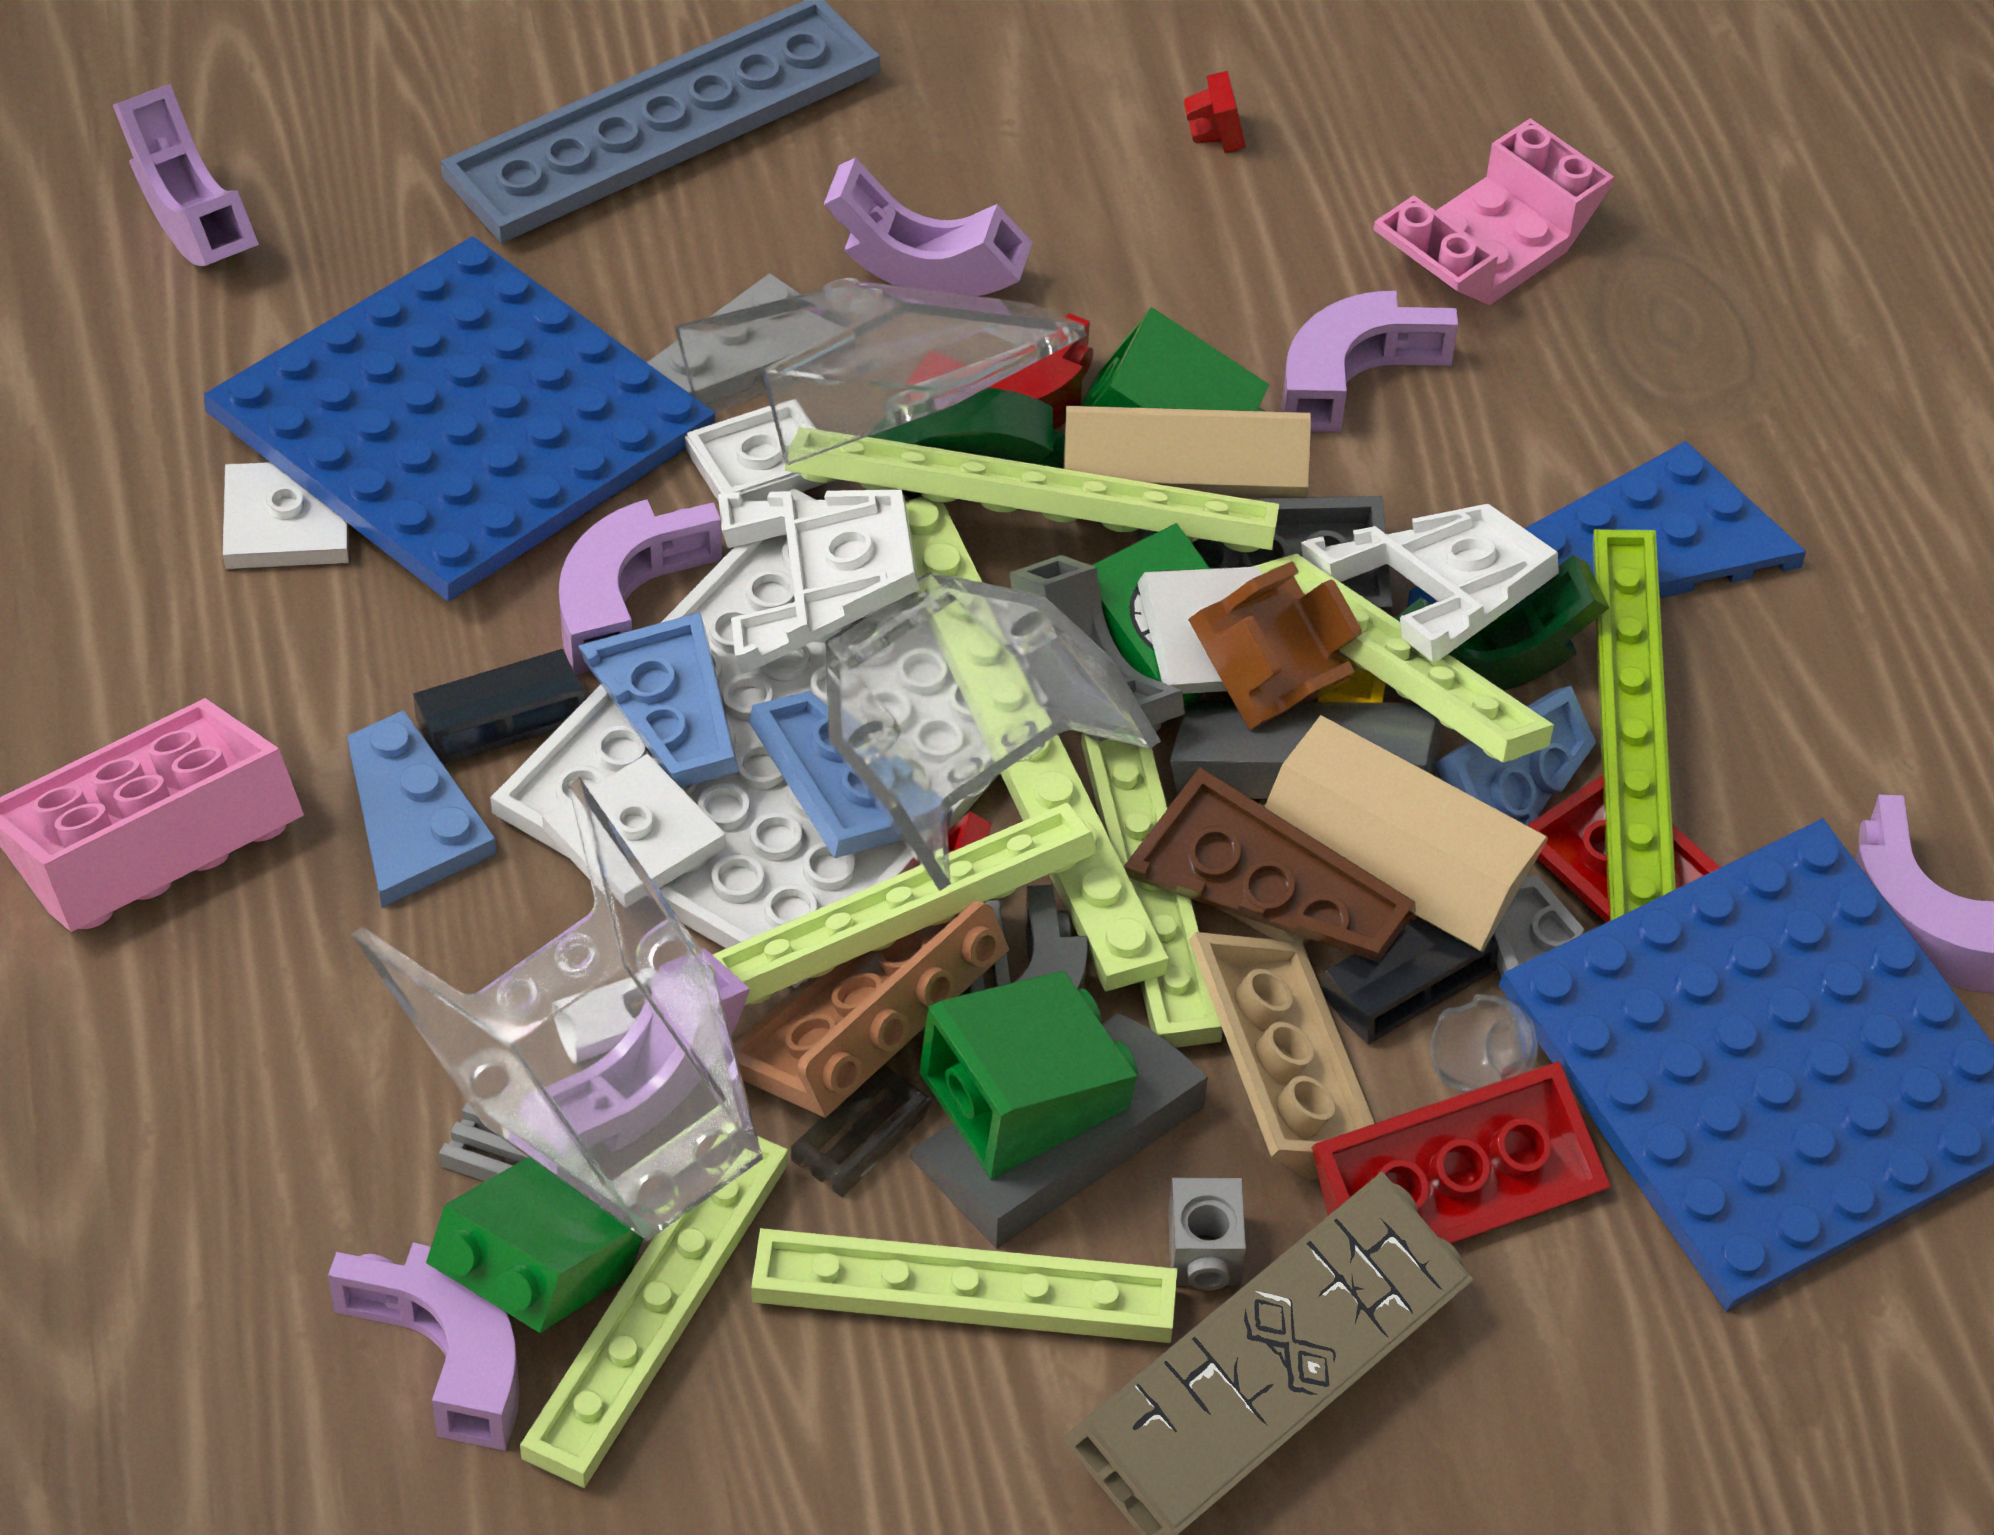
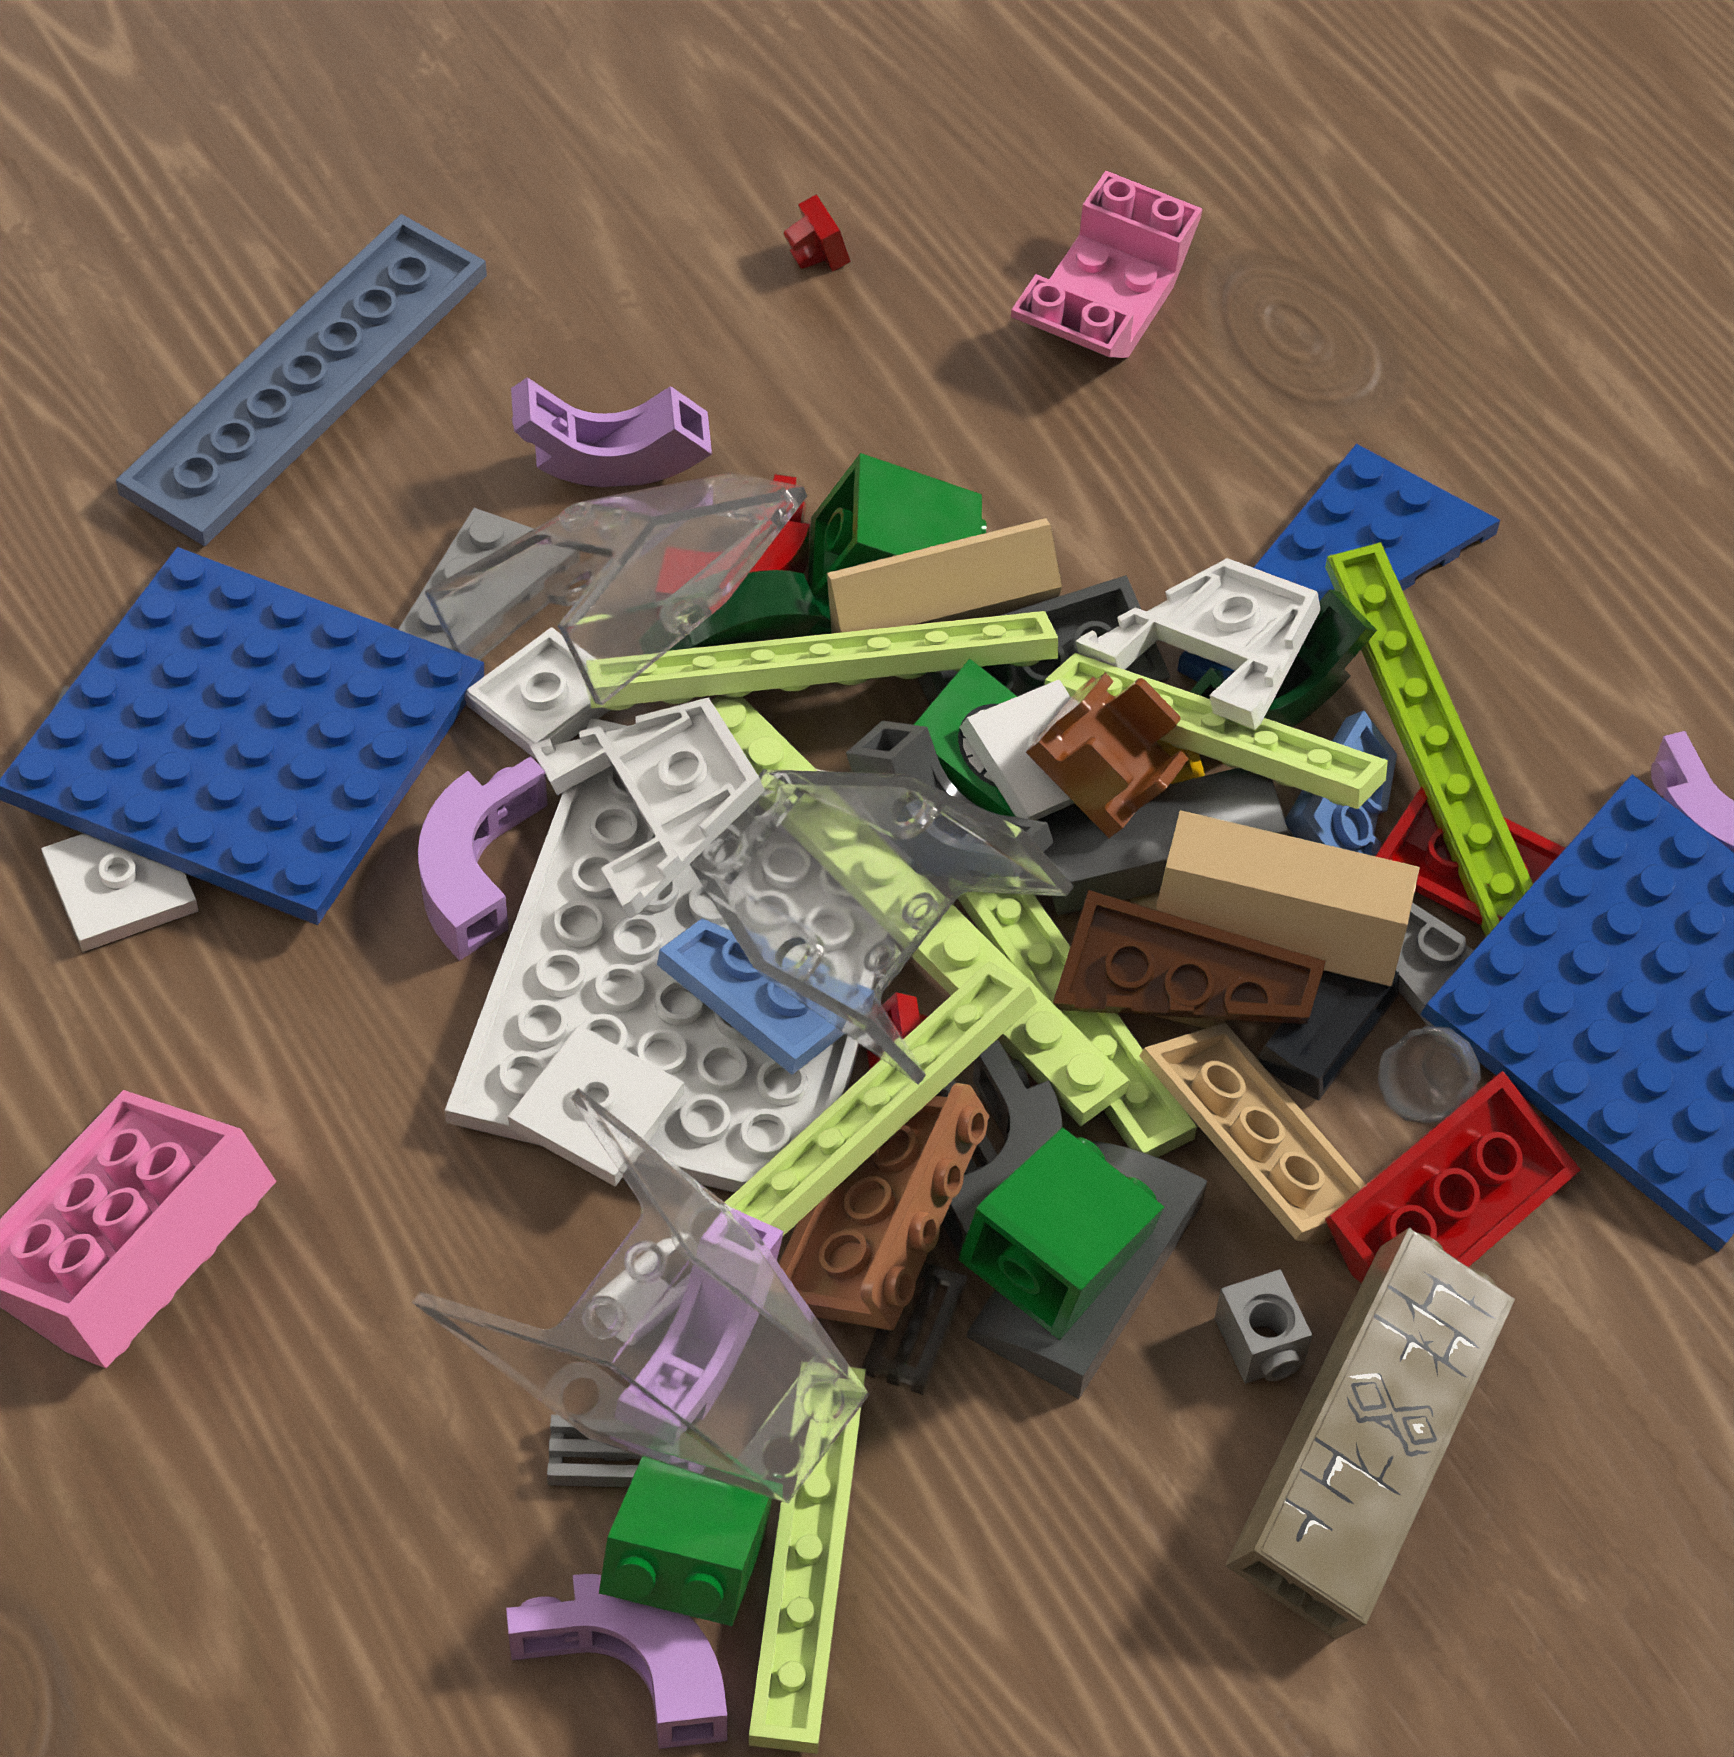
camera: 20 degrees left, 5 degrees up
(412, 810) = (372, 1142): medium blue wing -> none
(498, 706) = (410, 1016): black piece -> none
(669, 695) = (573, 961): medium blue wing -> none
(964, 1285) = (1072, 1446): yellowish green plate -> none
(1354, 337) = (1026, 426): lavender arch -> none

